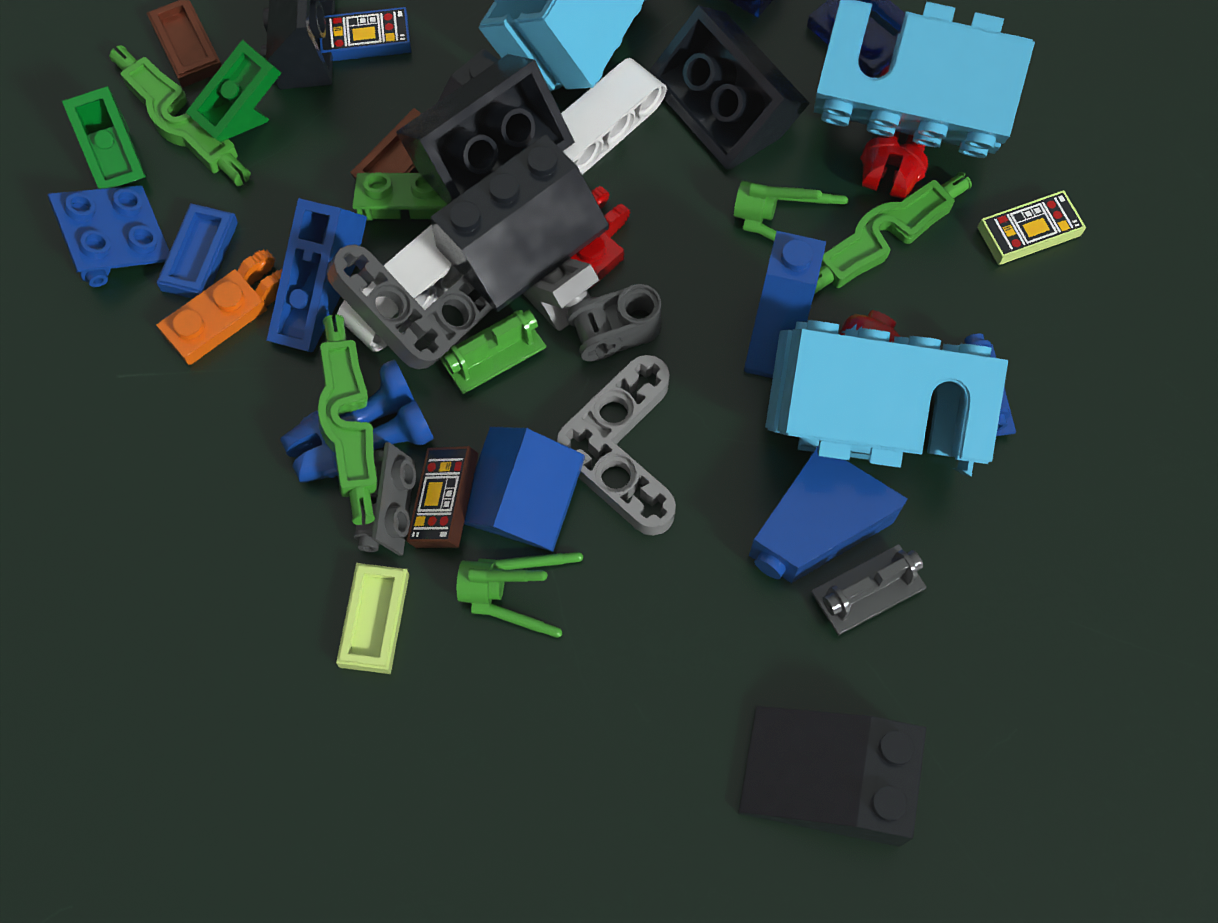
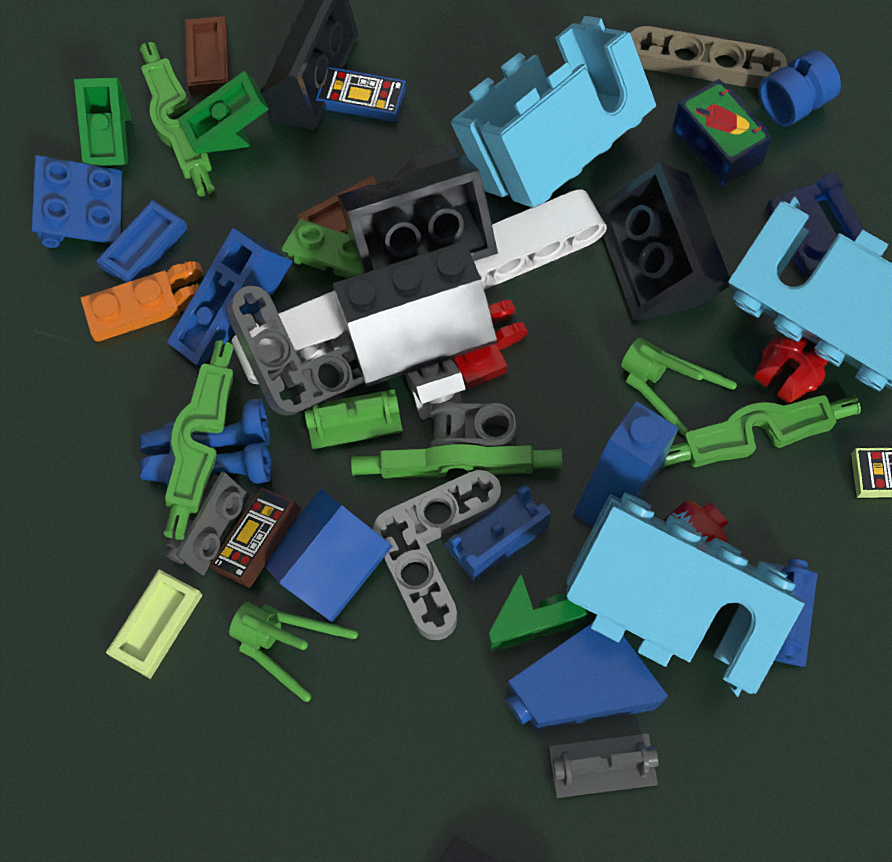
camera: 25 degrees right, 0 degrees up
(595, 360) = (437, 460): none -> bright green piece
(682, 410) = (499, 534): none -> blue hinge
(743, 483) = (521, 624): none -> green slope

